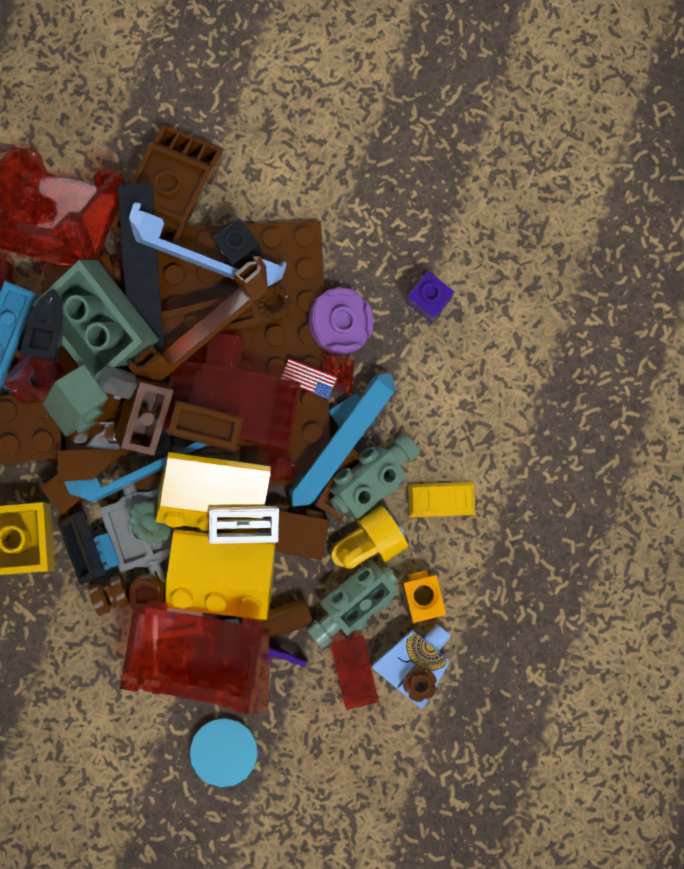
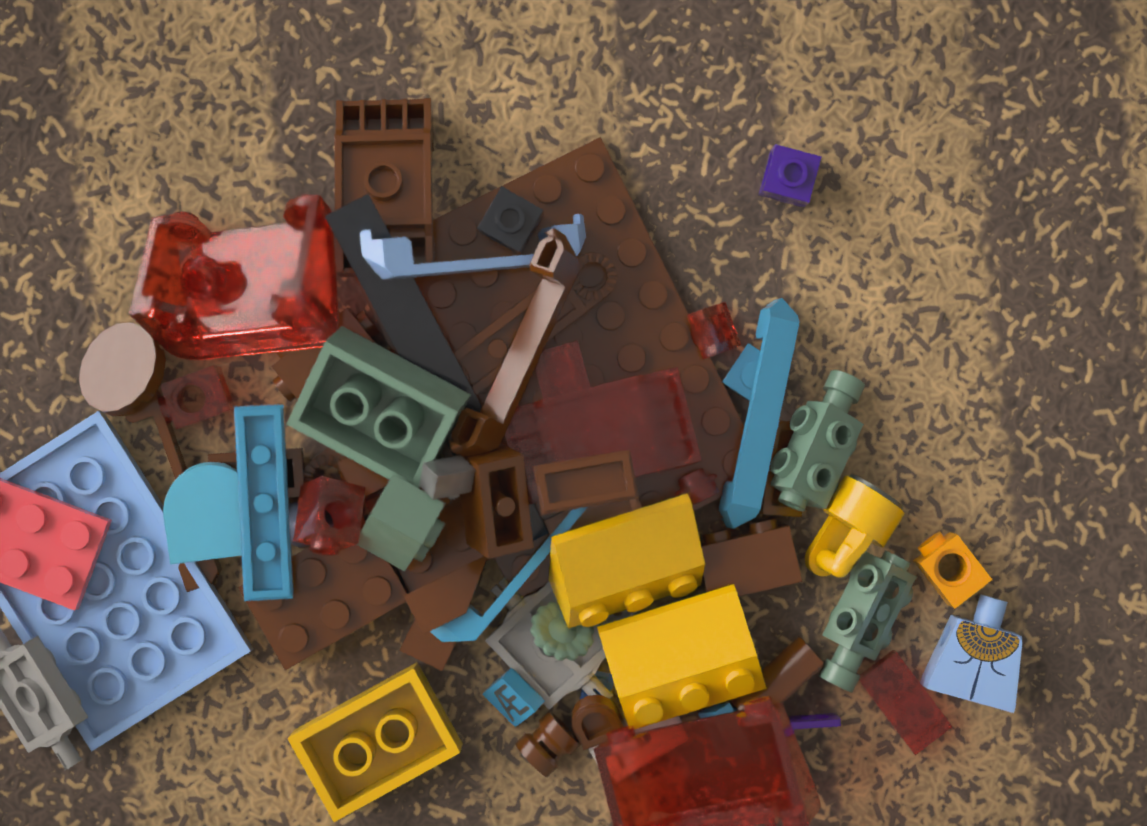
camera: 20 degrees left, 5 degrees up
(44, 329) = (321, 450): black plate -> none
(81, 548) = (484, 701): black tile -> none
(243, 511) = (677, 568): white tile -> none
(311, 379) = (686, 353): sticker -> none
(340, 321) = (686, 258): medium lavender tile -> none
(427, 691) = (987, 681): reddish brown plate -> none
(441, 499) = (916, 431): yellow tile -> none

